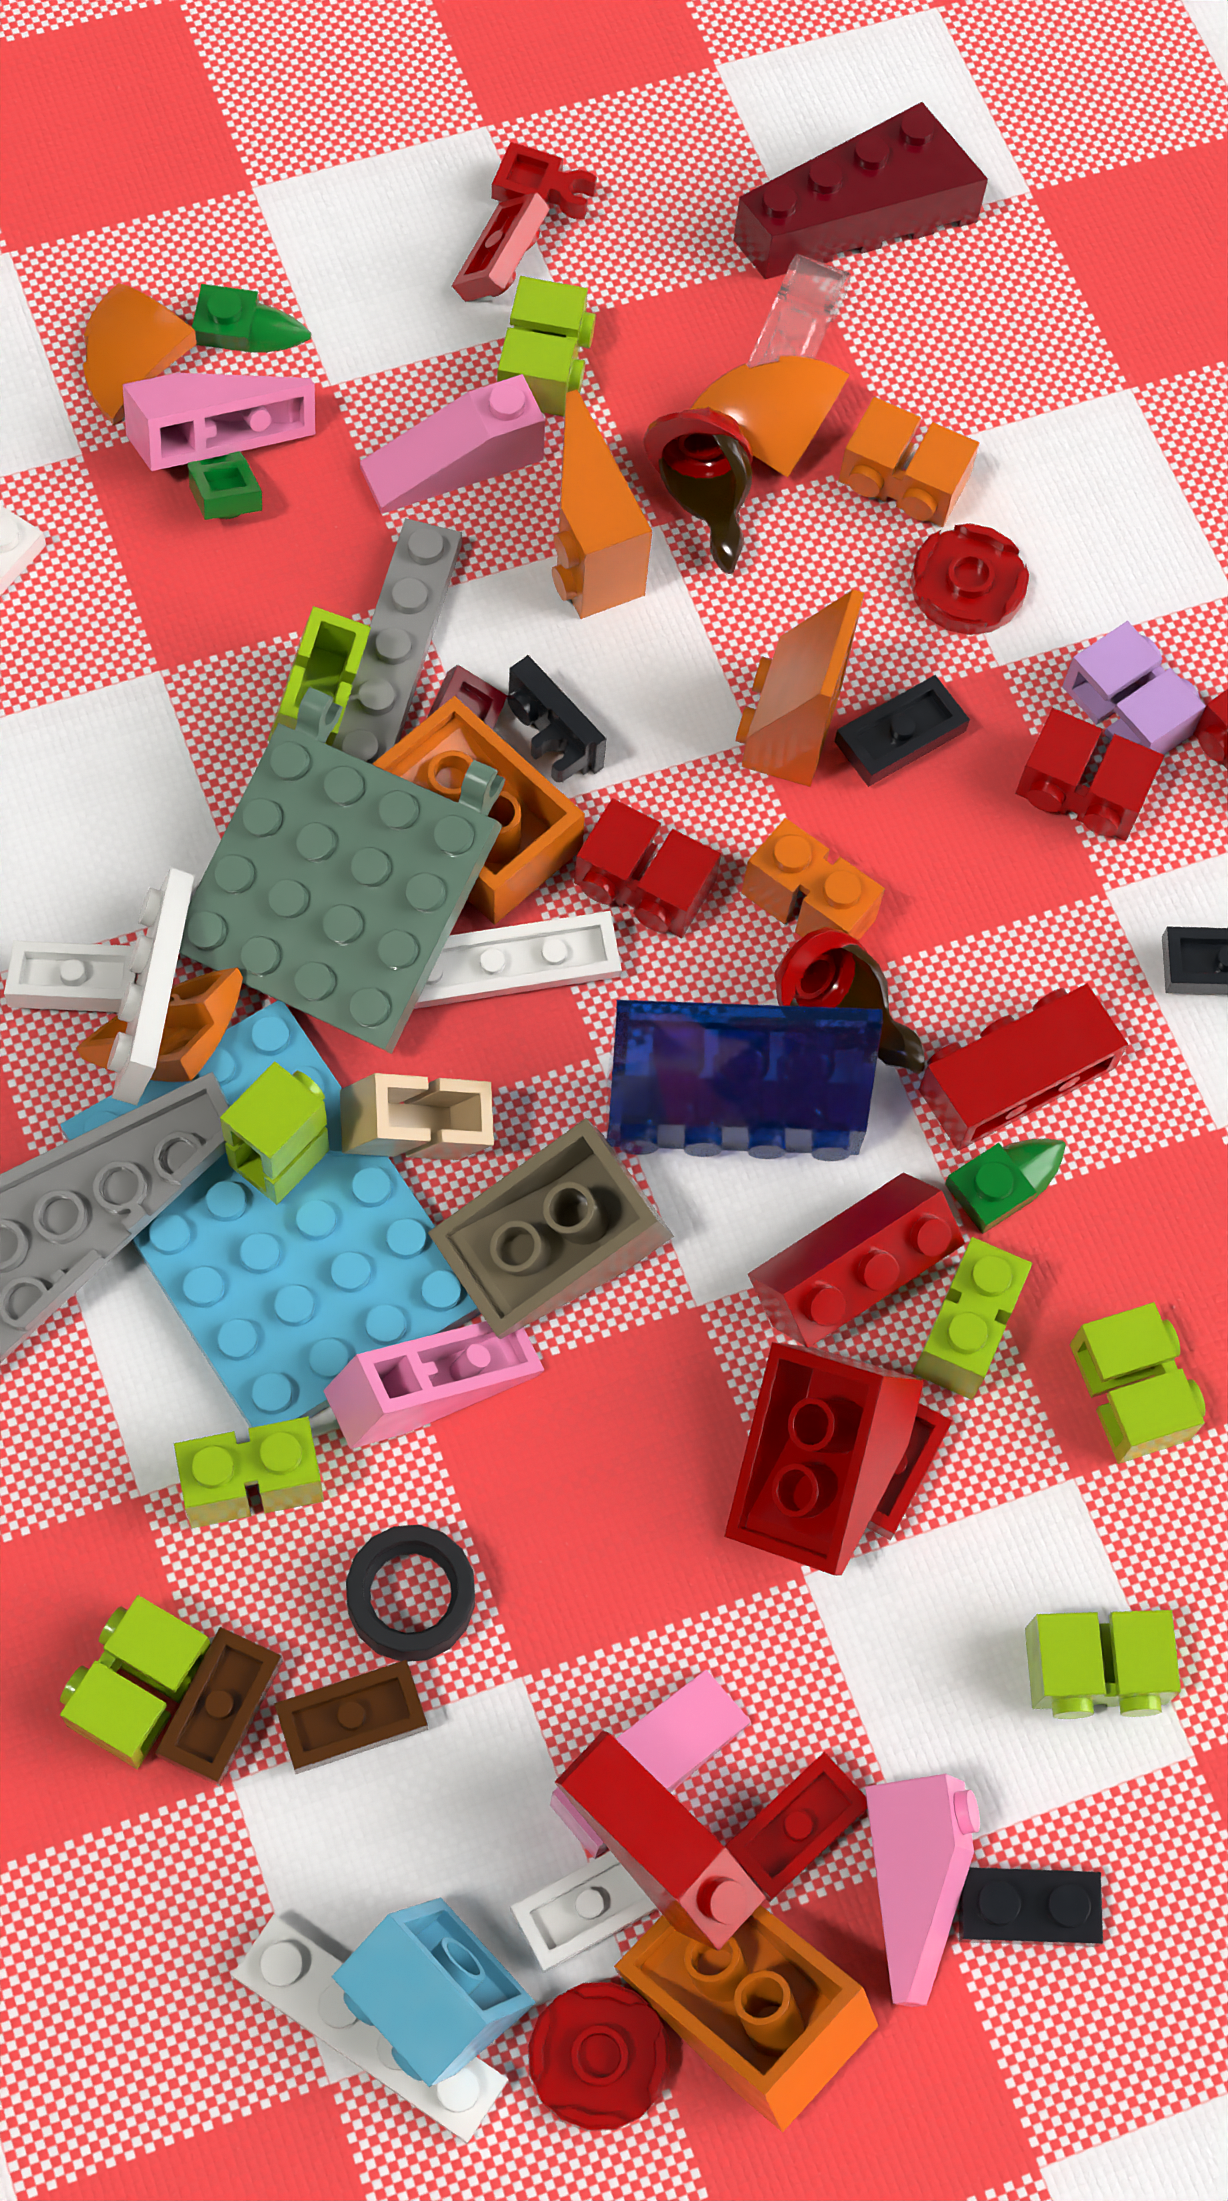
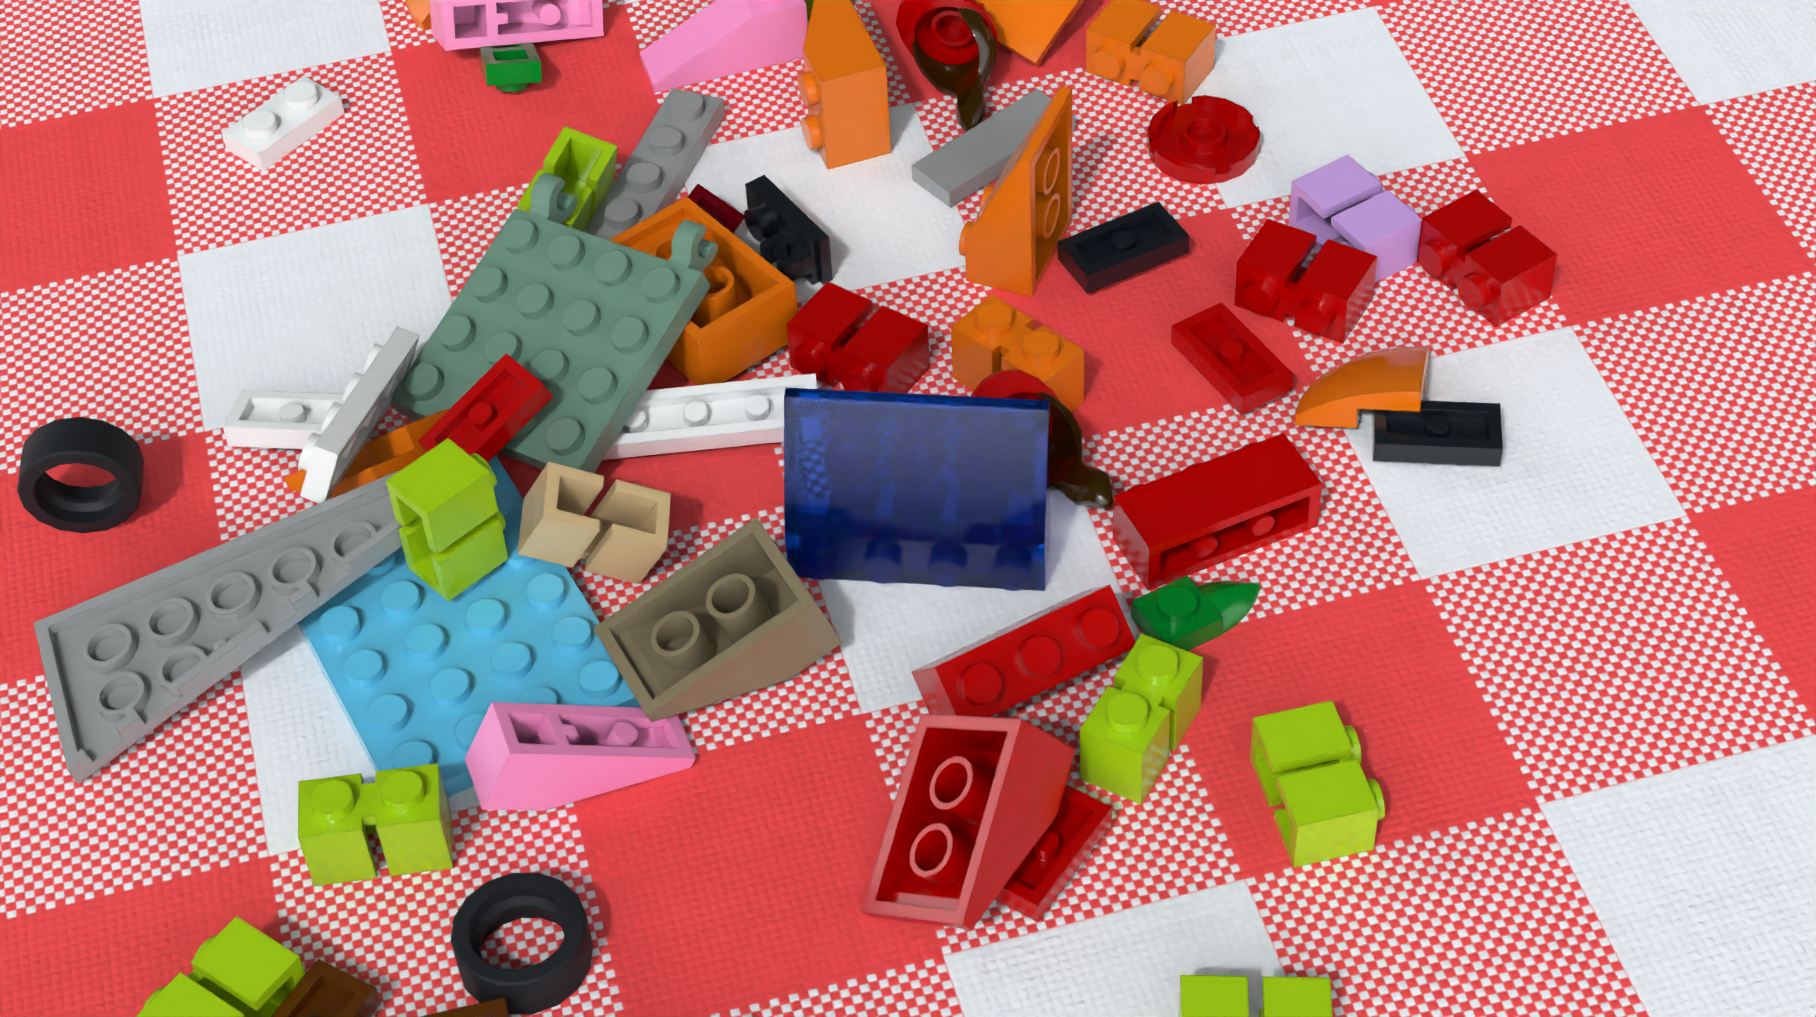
camera: 15 degrees right, 20 degrees down
(286, 993) = (490, 411): none -> red plate
(754, 593) = (980, 152): none -> light grey tile
(1021, 872) = (1231, 358): none -> red plate
(1161, 901) = (1373, 381): none -> orange brick

